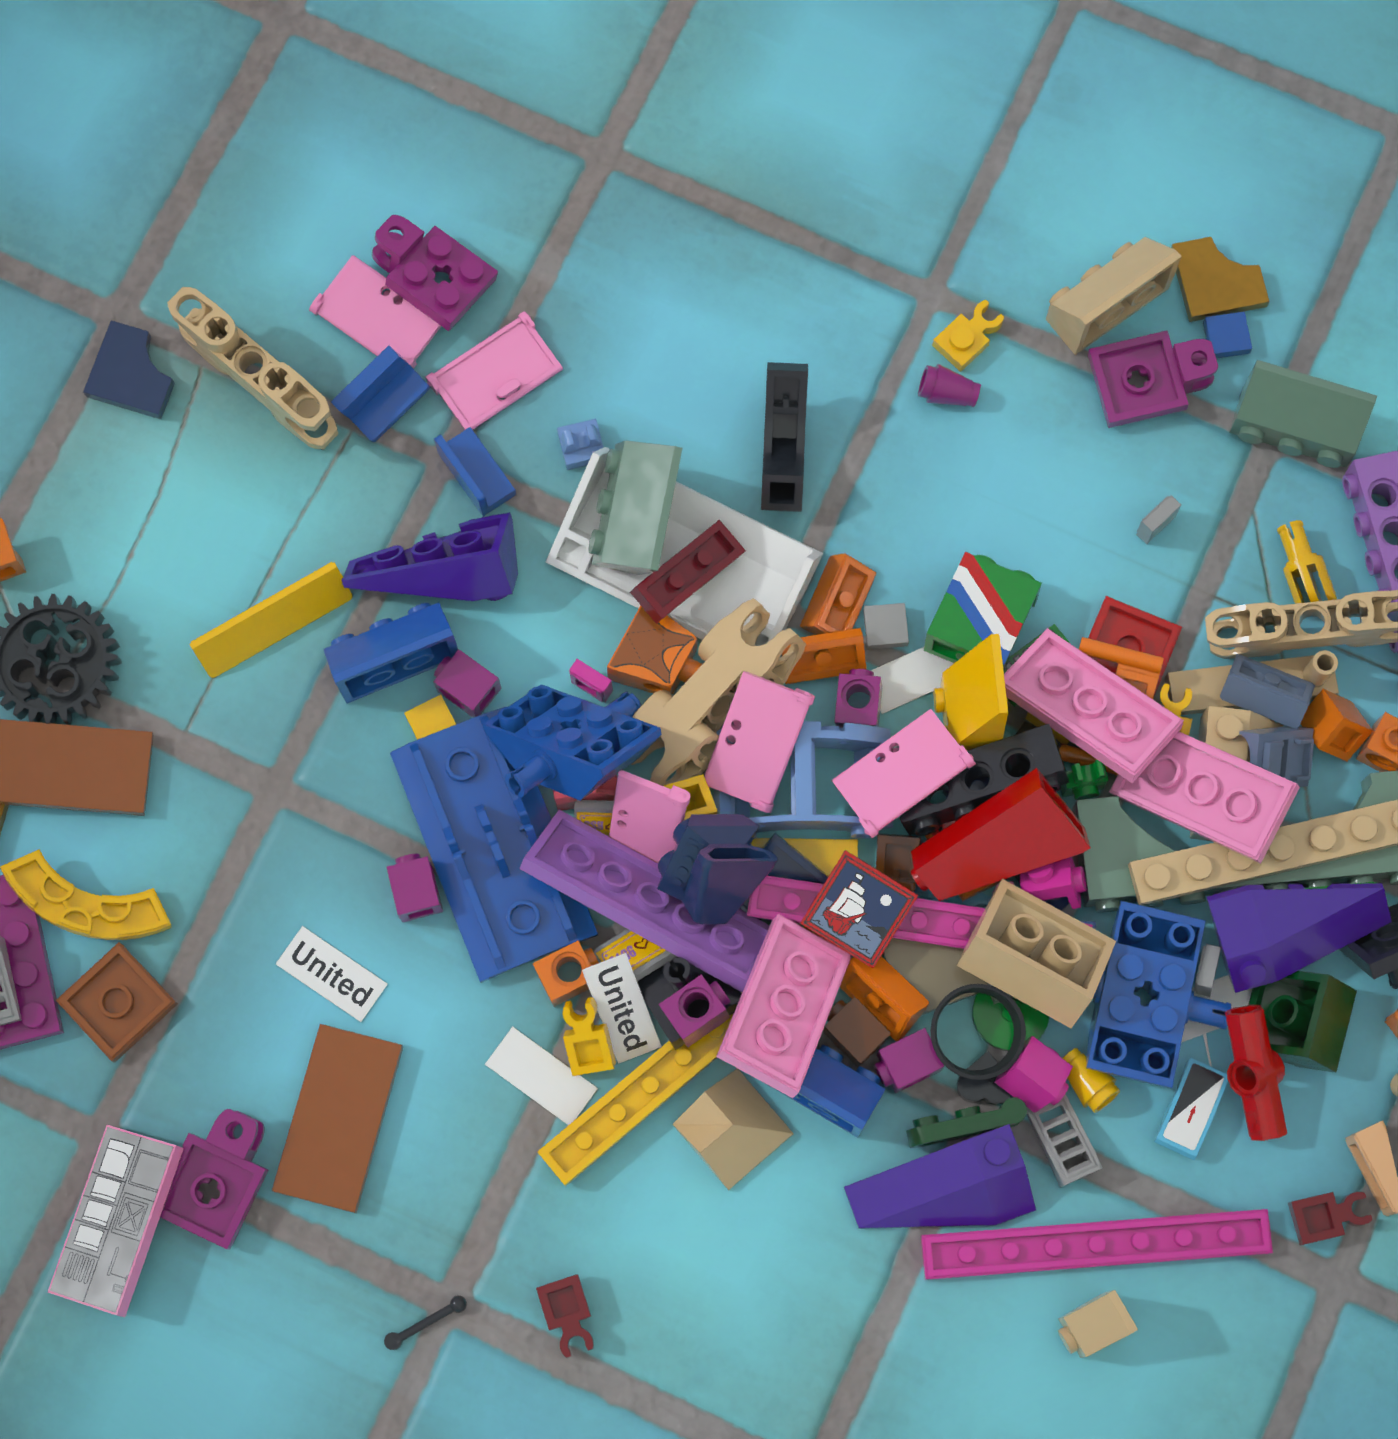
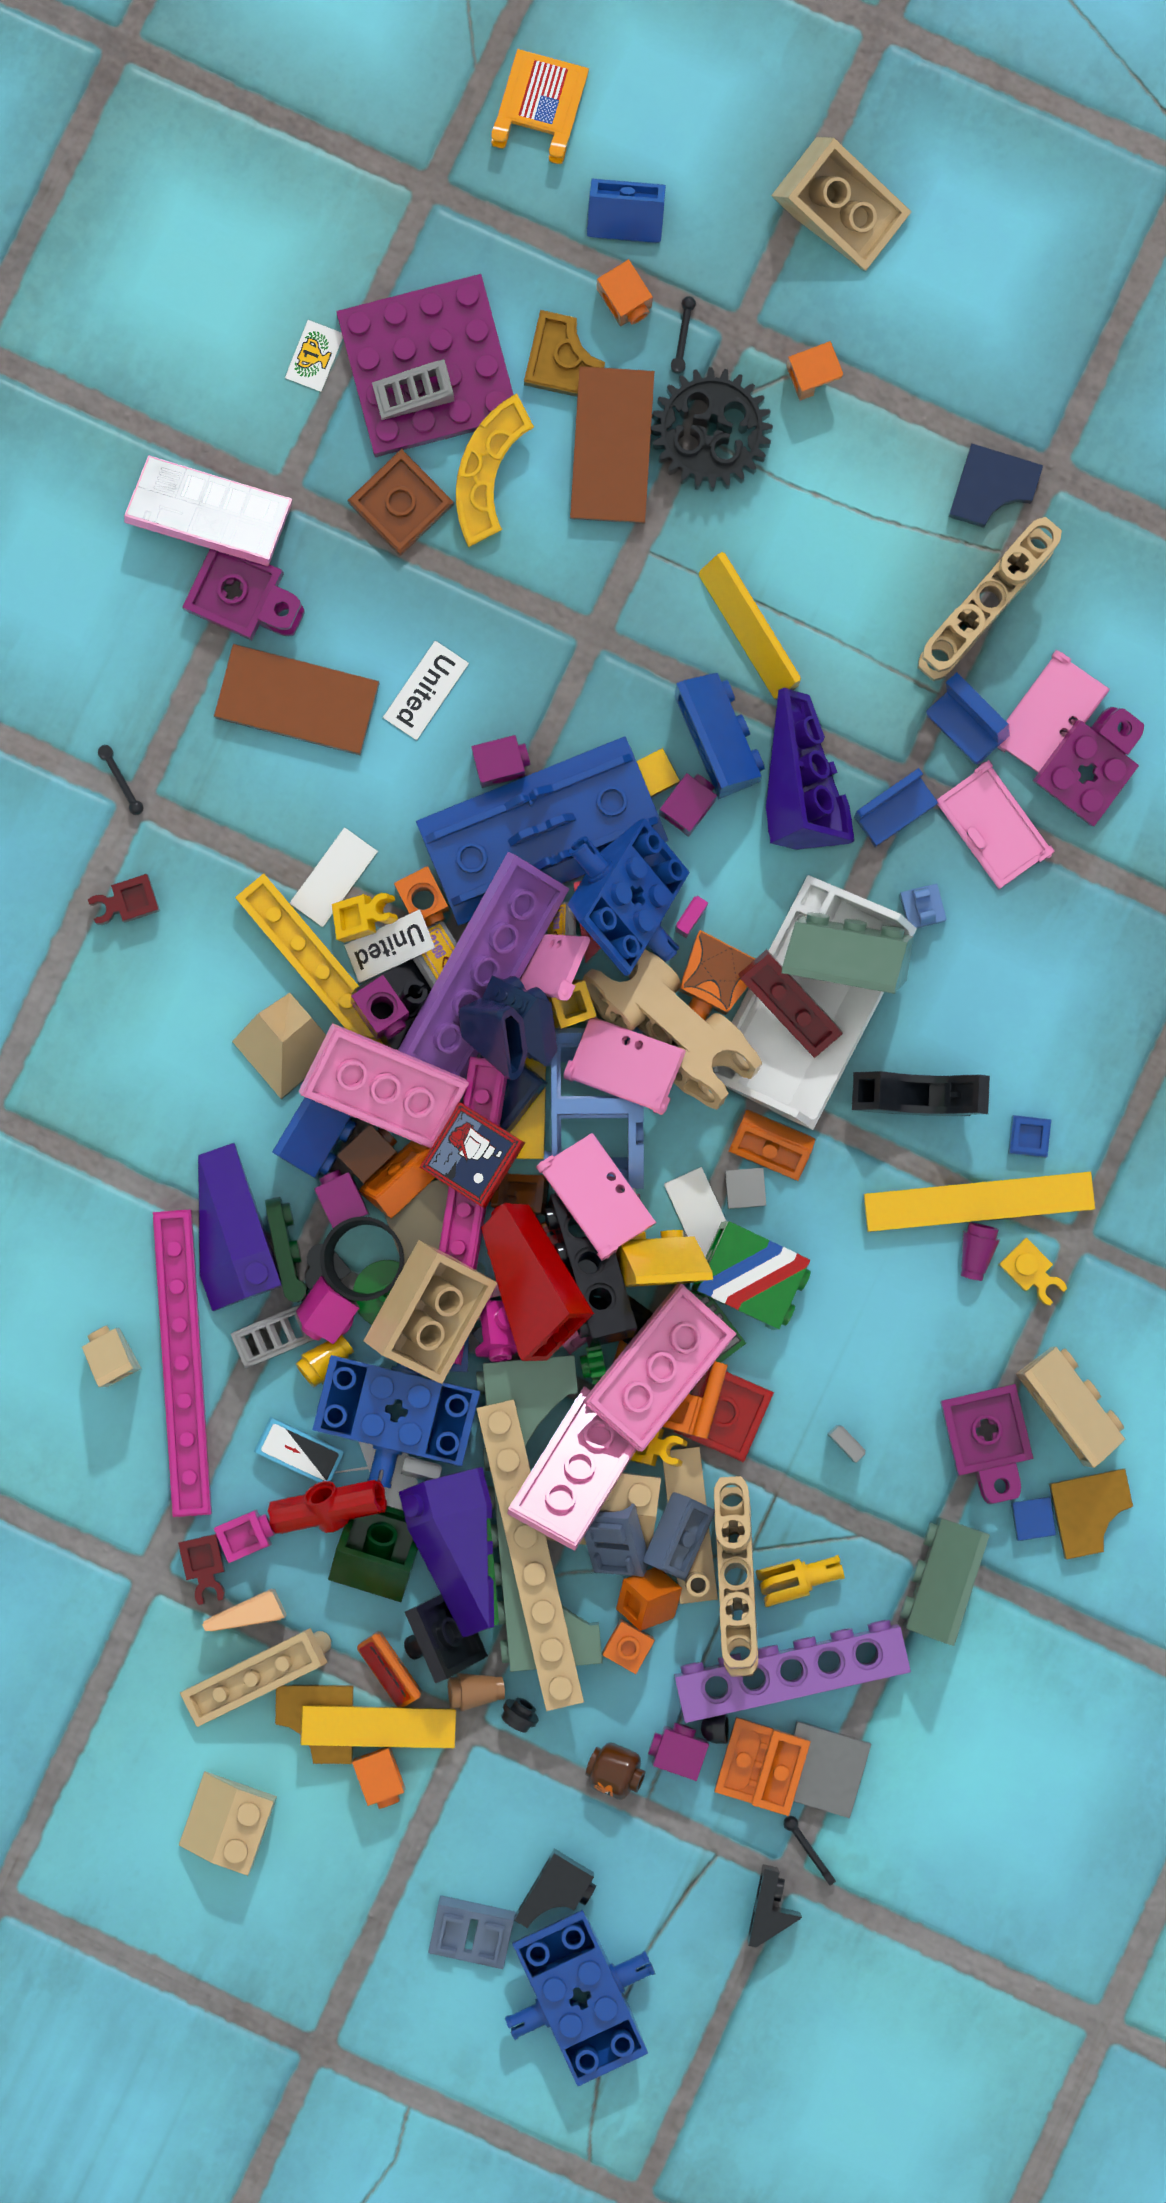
camera: 85 degrees right, 10 degrees up
(825, 338) = (1029, 1136): none -> blue tile
(829, 655) = (715, 1134): orange plate -> none
(858, 681) = (658, 1148): magenta brick -> none
(896, 389) = (979, 1201): none -> yellow tile
(1289, 1169) = (244, 1535): none -> dark pink bracket

